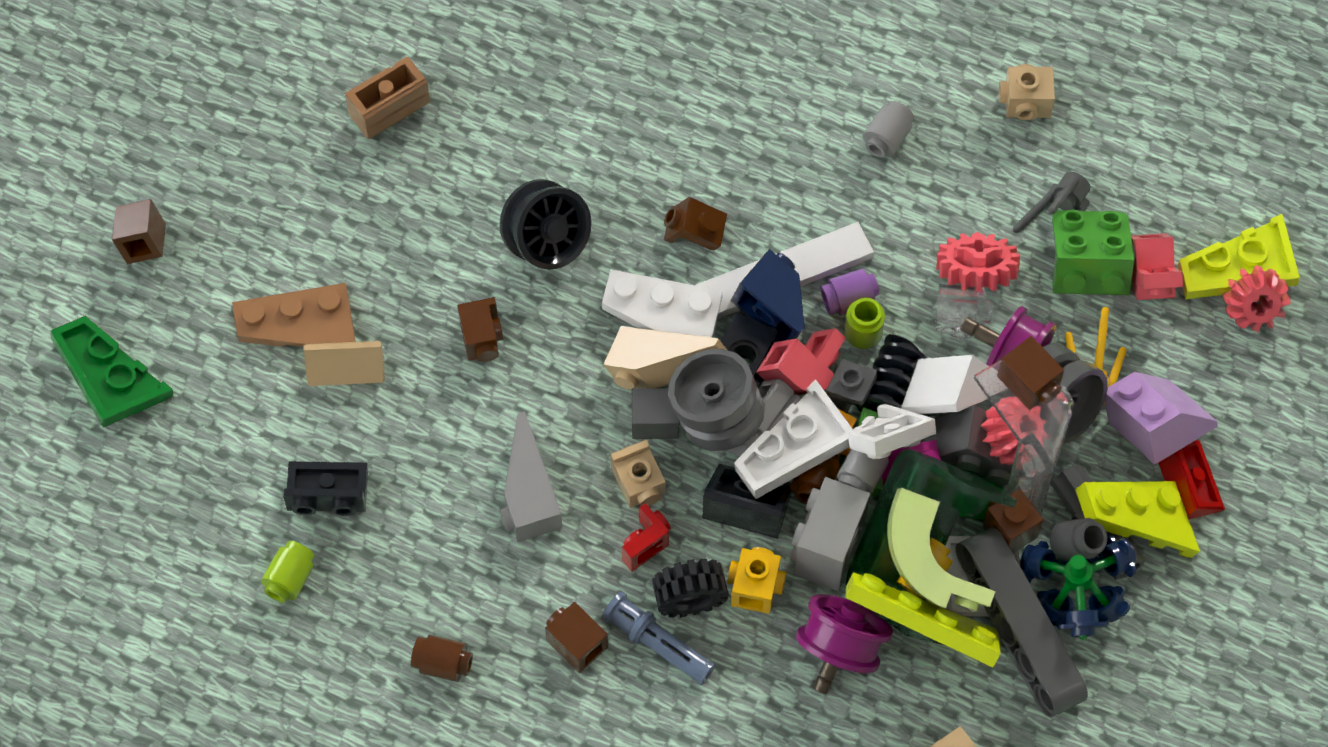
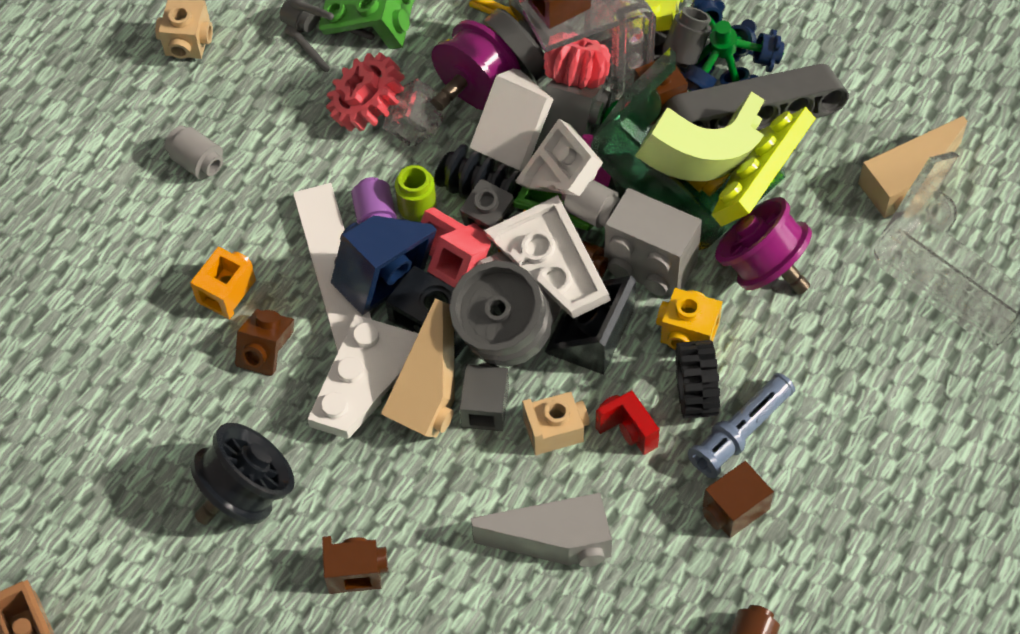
camera: 80 degrees left, 5 degrees down
(748, 180) = (223, 281): none -> light orange brick

